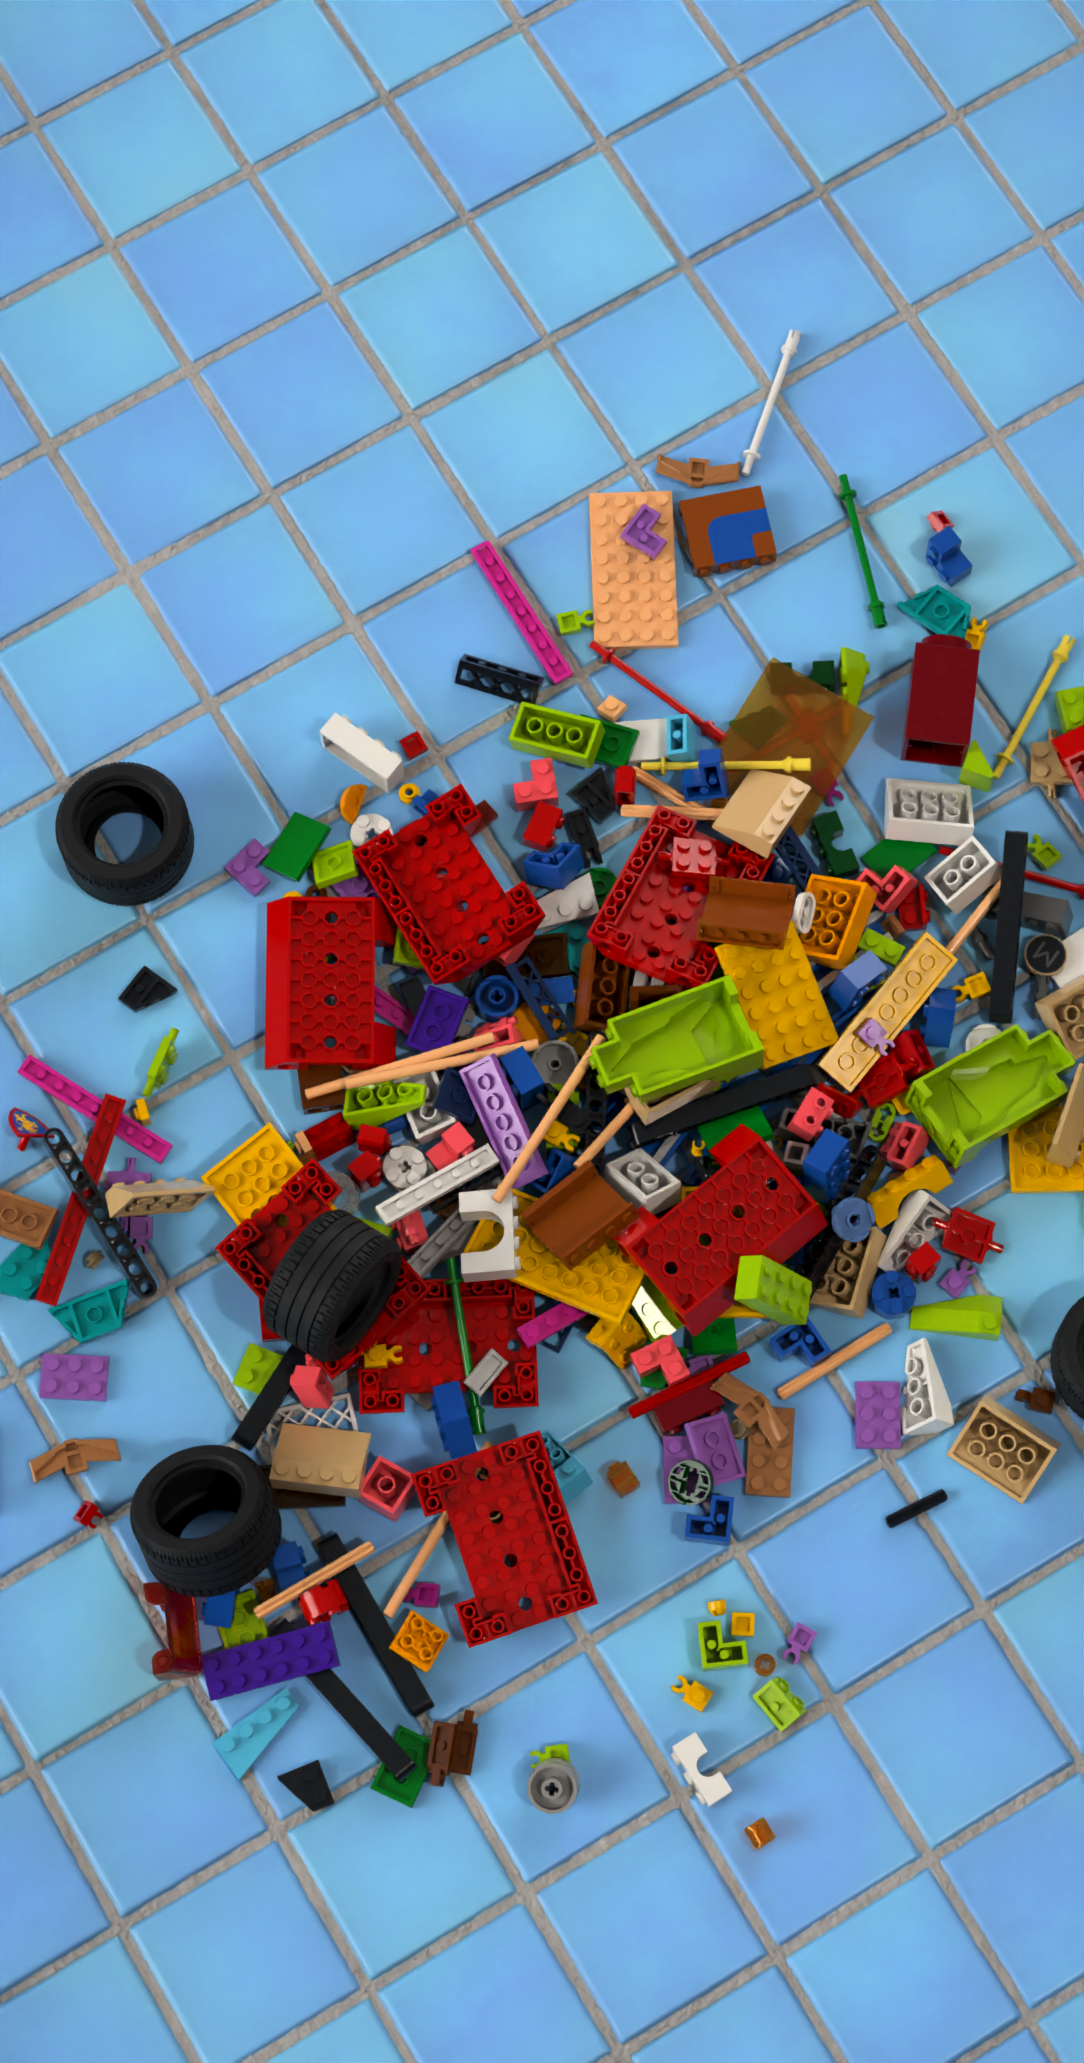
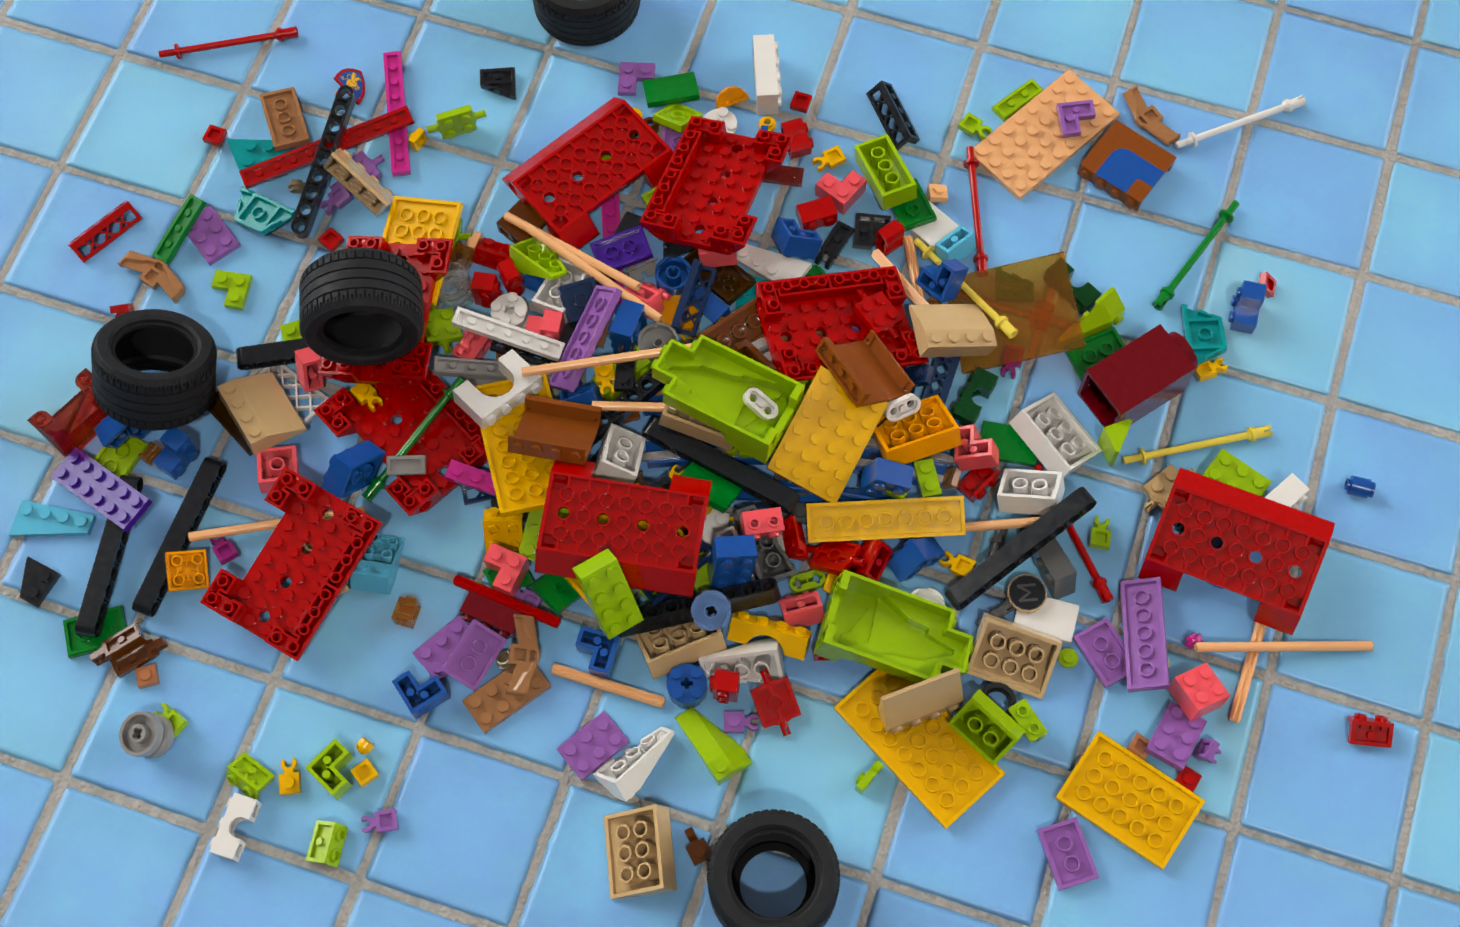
camera: 50 degrees right, 5 degrees down
(49, 1399) = (179, 229): none -> green plate
(151, 1390) = (236, 285): none -> lime plate
(181, 1270) = (331, 239): none -> red plate
(313, 1580) = (176, 471): light nougat axle -> none
(323, 1602) = (166, 490): red brick -> none
(443, 777) = (801, 144): none -> red brick
(489, 1750) = (147, 676): none -> nougat plate
(495, 767) = (832, 157): none -> yellow plate
(521, 612) = (949, 94): dark pink plate -> none
(578, 562) = (1016, 100): none -> lime tile
(662, 1726) = (248, 776): none -> lime bracket
(681, 1479) = (429, 648): piece -> none
(706, 1027) = (760, 403): none -> white plate
(759, 1834) = (216, 904): clear orange brick -> none
(763, 1672) = (347, 816): clear orange bush -> none
(873, 1035) = (859, 521): medium lavender plate -> none
(885, 704) = (1096, 349): none -> green tile
(916, 1508) = (546, 826): black axle -> none

